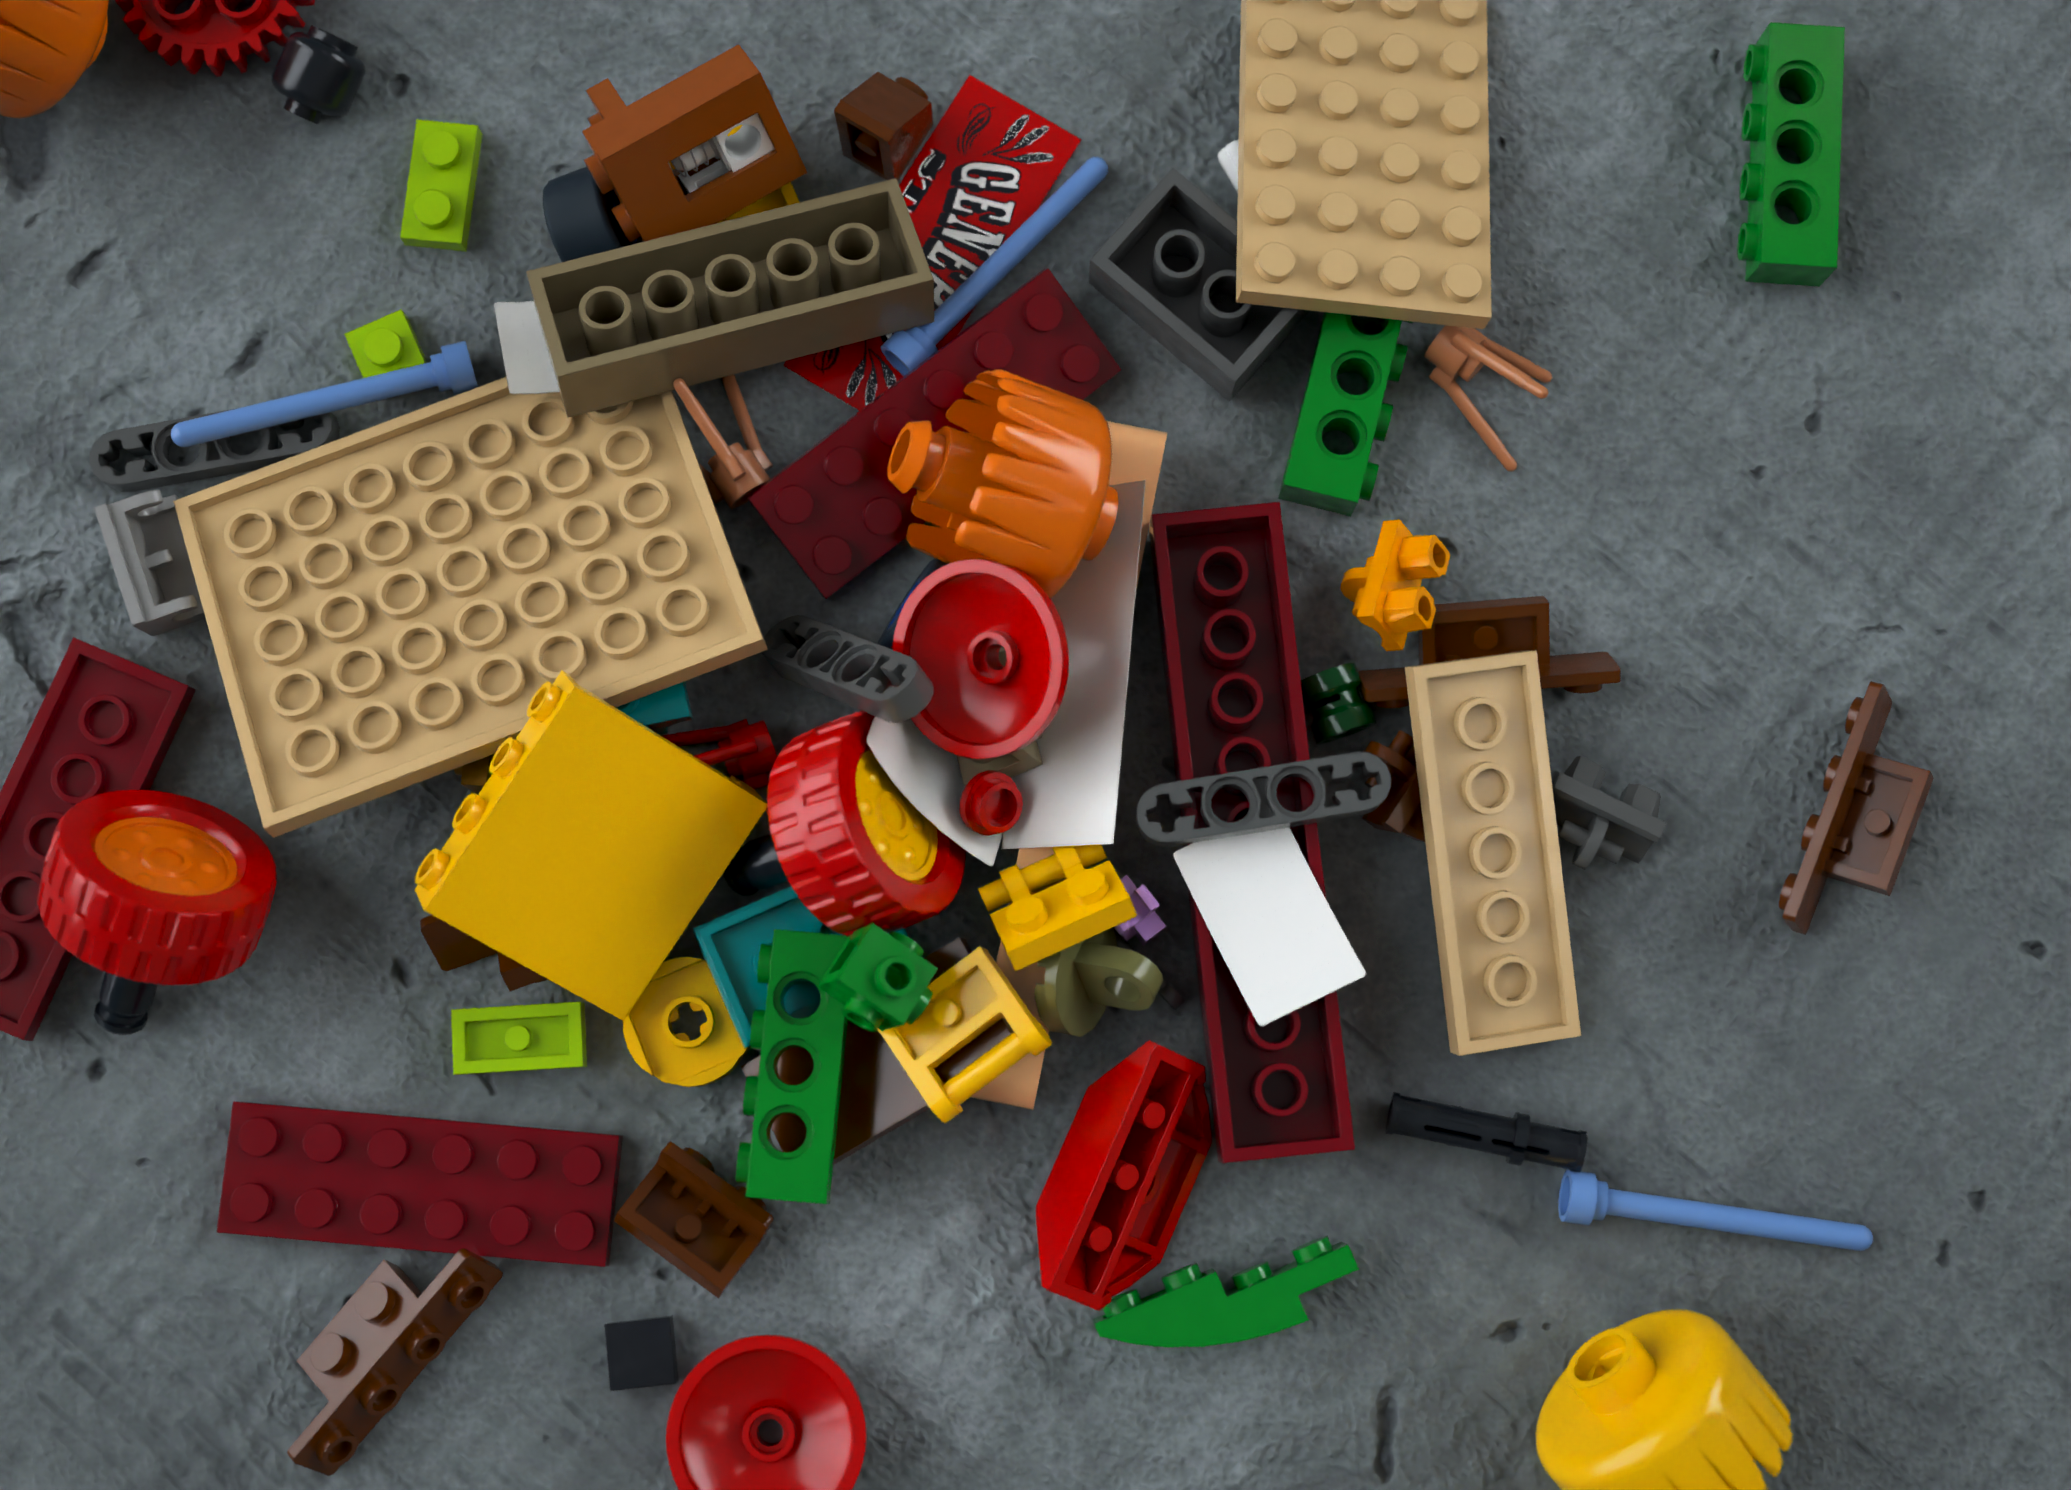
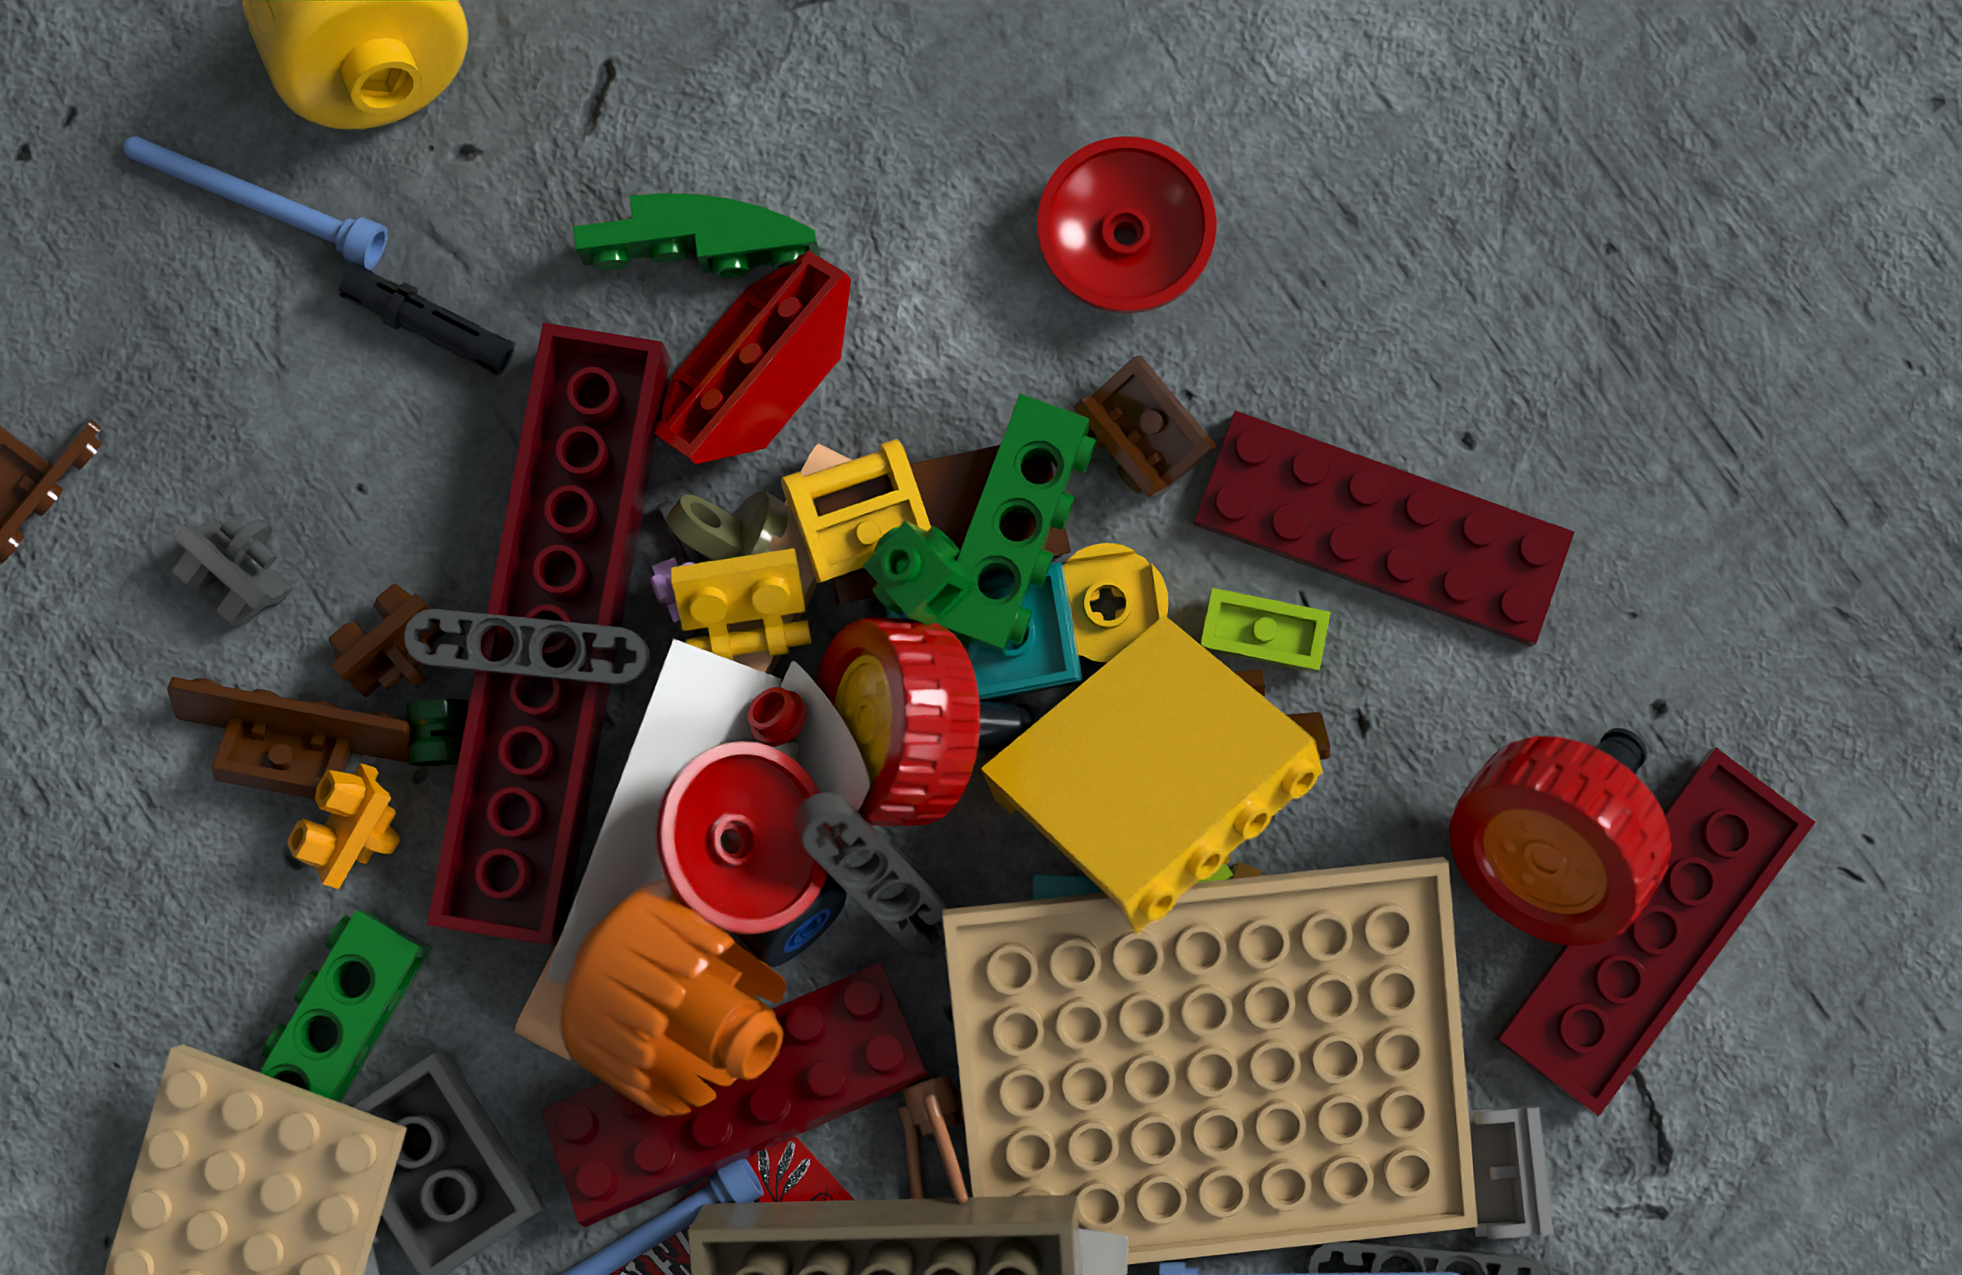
camera: 165 degrees left, 0 degrees up
(380, 1348) = (1449, 396): reddish brown bracket -> none
(641, 1353) = (1221, 331): black tile -> none
(742, 747) = (992, 836): red plant -> none
(1269, 920) = (555, 537): white sticker -> none
(1463, 353) = (212, 1031): nougat plant -> none
(1493, 852) = (336, 557): tan plate -> none

